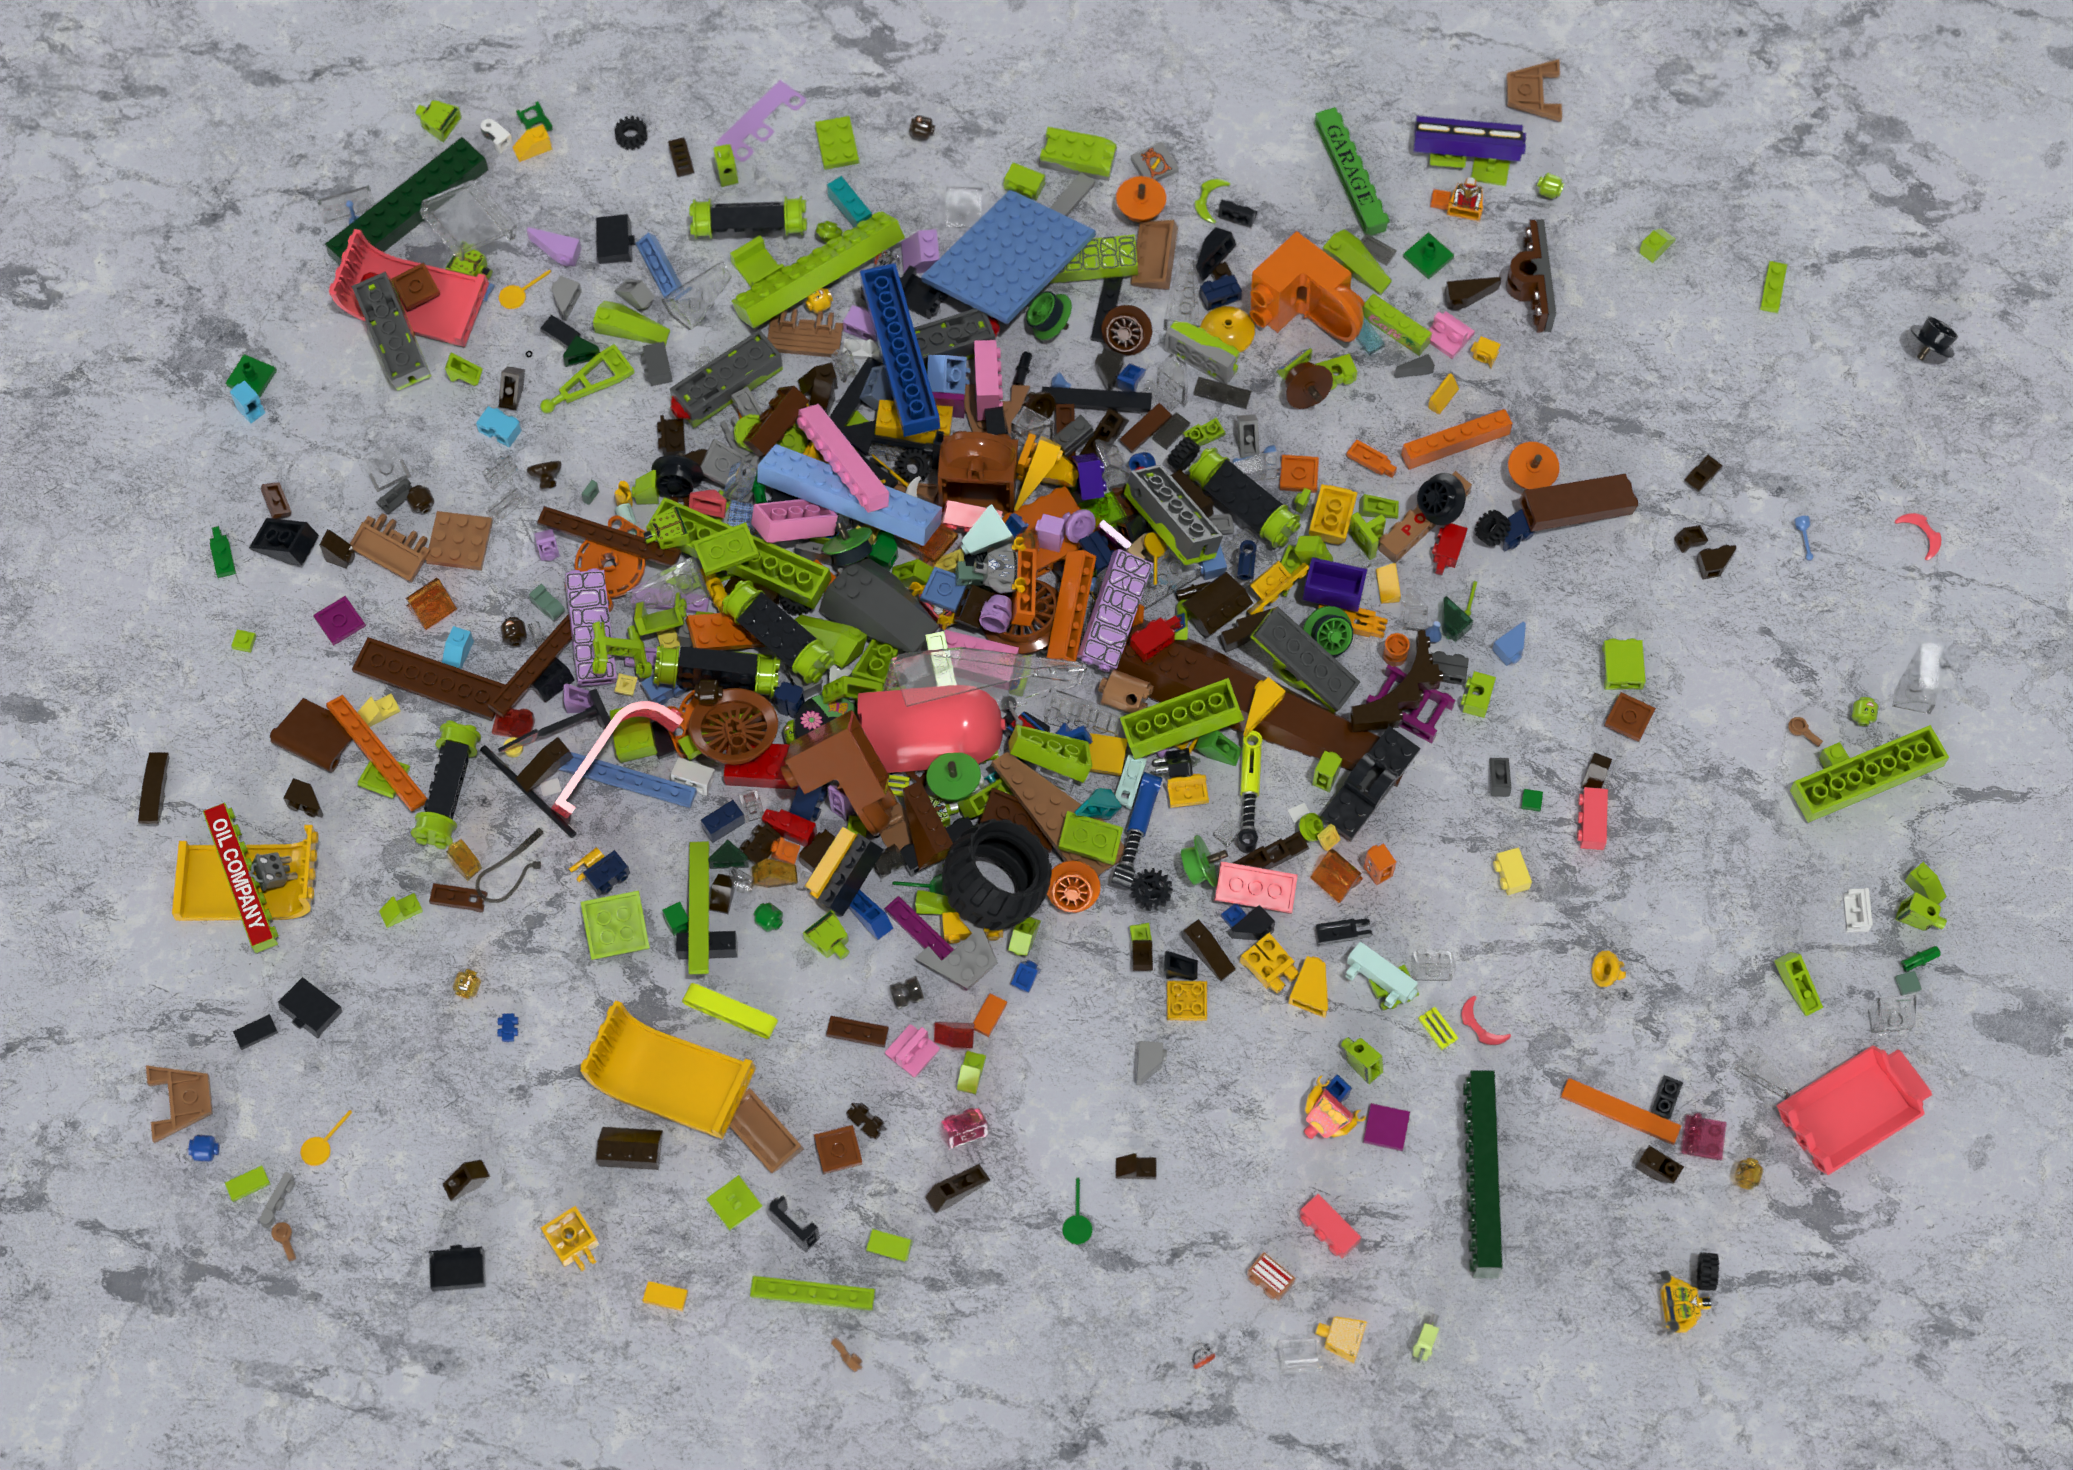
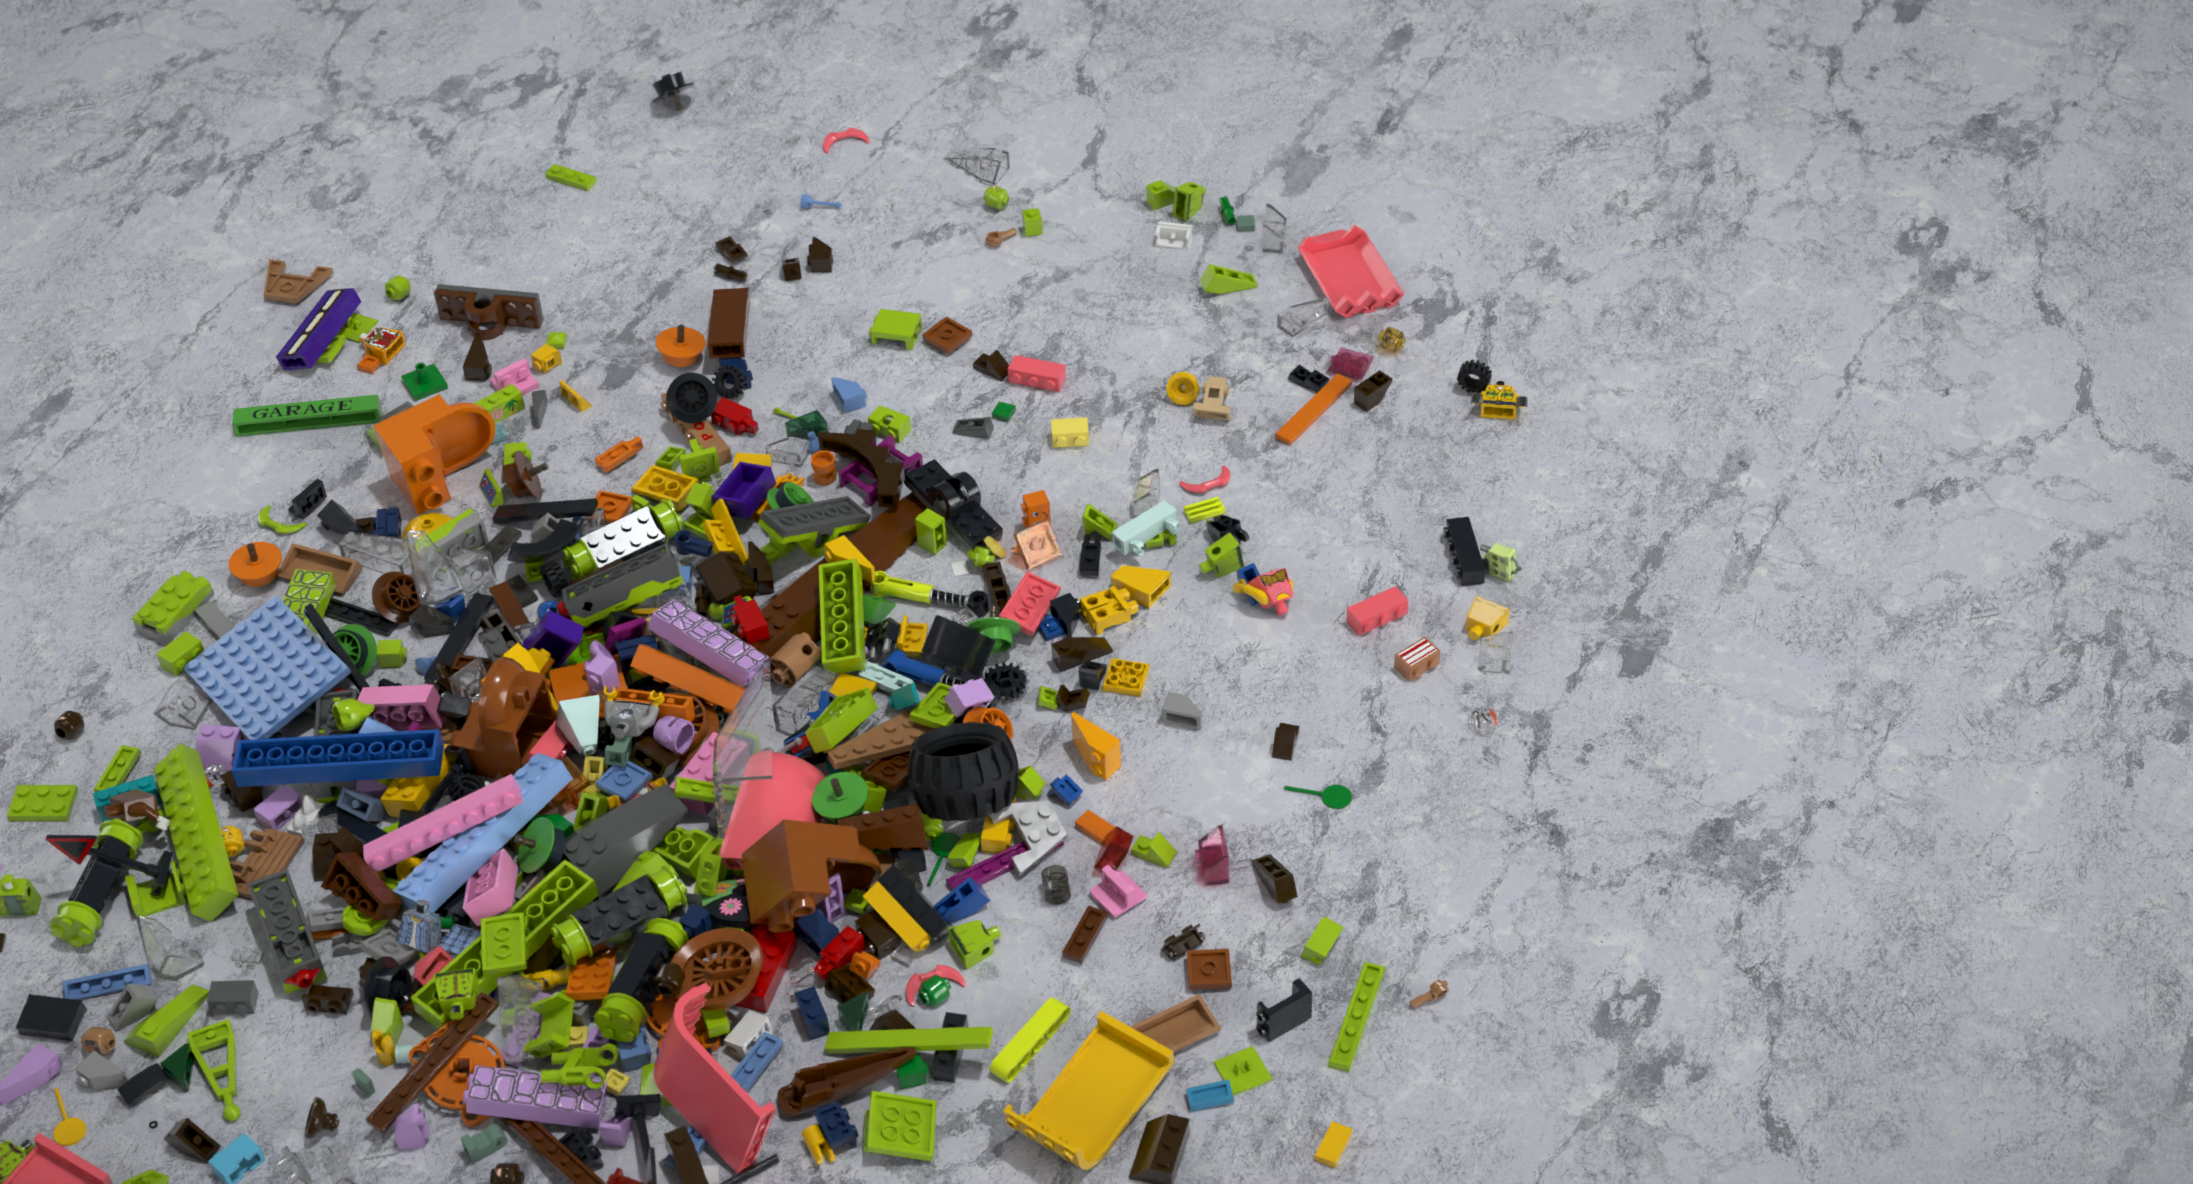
camera: 75 degrees left, 20 degrees down
(595, 282) = (98, 1040): none -> medium nougat head
(650, 857) = (837, 1079): none -> reddish brown piece
(698, 1178) = (1210, 1095): none -> dark azure tile
(770, 255) = (78, 846): none -> black piece
(774, 873) = (887, 979): clear yellow slope -> none
(793, 917) = (940, 970): none -> coral piece
(822, 213) = (135, 806): none -> reddish brown torso
(881, 184) = (118, 768): none -> lime plate
(953, 341) = (351, 713): none -> lime piece
(1029, 307) = (334, 645): none -> black tile
(1064, 349) = (391, 653): none -> lime brick
(1074, 989) = (1097, 747): none -> light orange slope
(1098, 858) = (968, 696): none -> lavender brick
(1151, 347) = (431, 574): none -> clear wedge
(1155, 162) = (214, 554): light grey tile -> none
(1169, 835) = (956, 648): none -> black panel
(1211, 433) = (548, 546): none -> black panel
(1268, 418) = (535, 511): none -> black tile
(1384, 928) = (1097, 521): none -> lime slope
(1386, 1127) = (1292, 557): magenta tile -> none
(1402, 1055) = (1223, 525): none -> black hinge
(1439, 1301) = (1464, 551): none -> black brick
(1456, 439) = (626, 393): orange brick -> none
(1483, 1174) = (1354, 495): dark green brick -> none
(1520, 352) = (557, 339): none -> lime tile
(1584, 1000) = (1213, 407): none -> tan tile
(1656, 244) = (493, 236): lime slope -> none
(1667, 482) = (730, 272): none -> dark brown axle
(1869, 773) = (1055, 204): lime brick -> none

